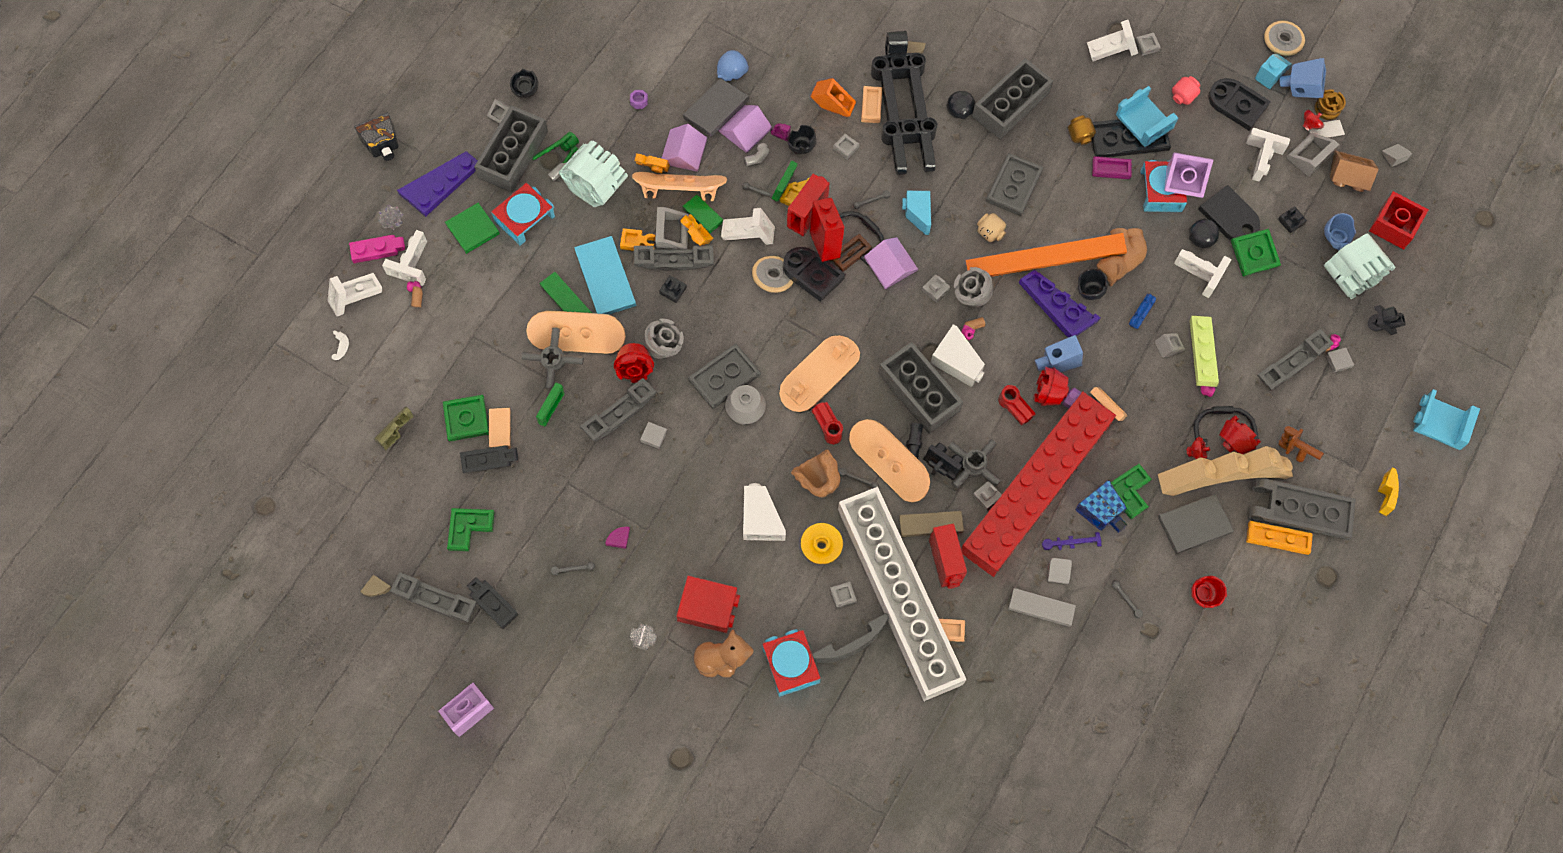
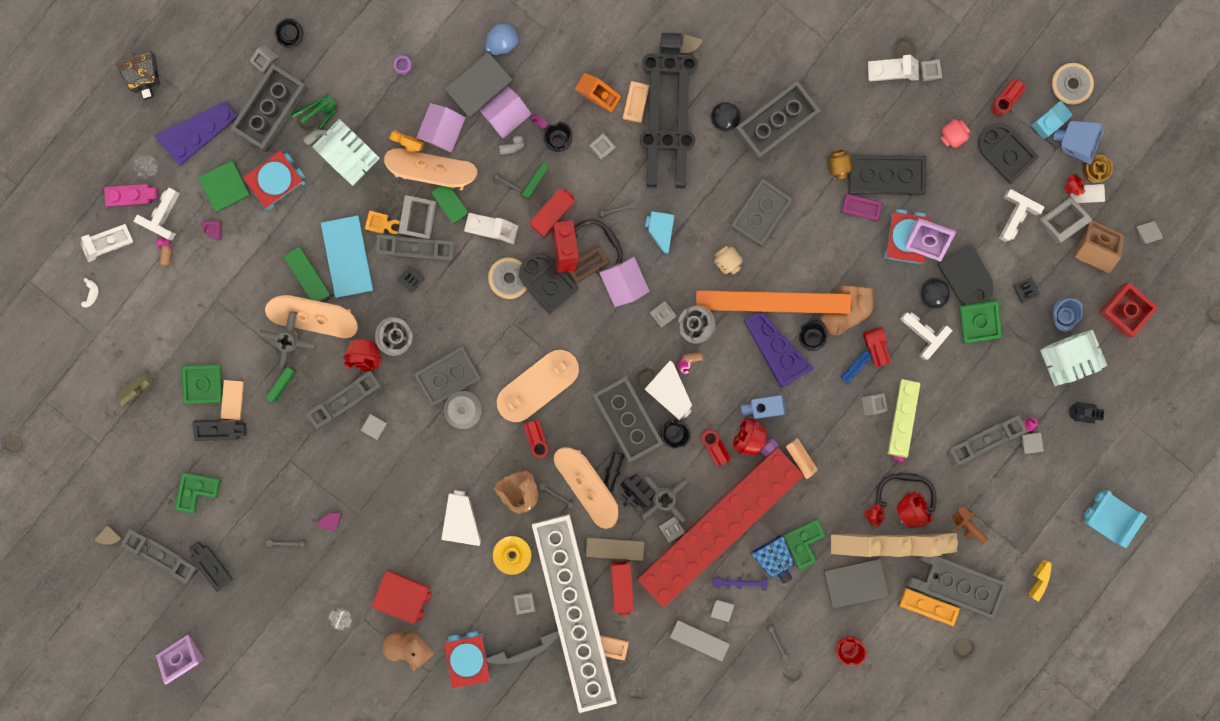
camera: 10 degrees right, 20 degrees up
(463, 268) = (213, 229): none -> magenta tile
(697, 231) = (442, 224): light orange plate -> none
(792, 191) = (545, 191): yellow tile -> none
(974, 396) = (675, 434): none -> black hair
(1144, 117) = (905, 160): medium azure panel -> none
(1157, 284) = (876, 343): none -> red piece
(1227, 56) = (1008, 97): none -> red piece

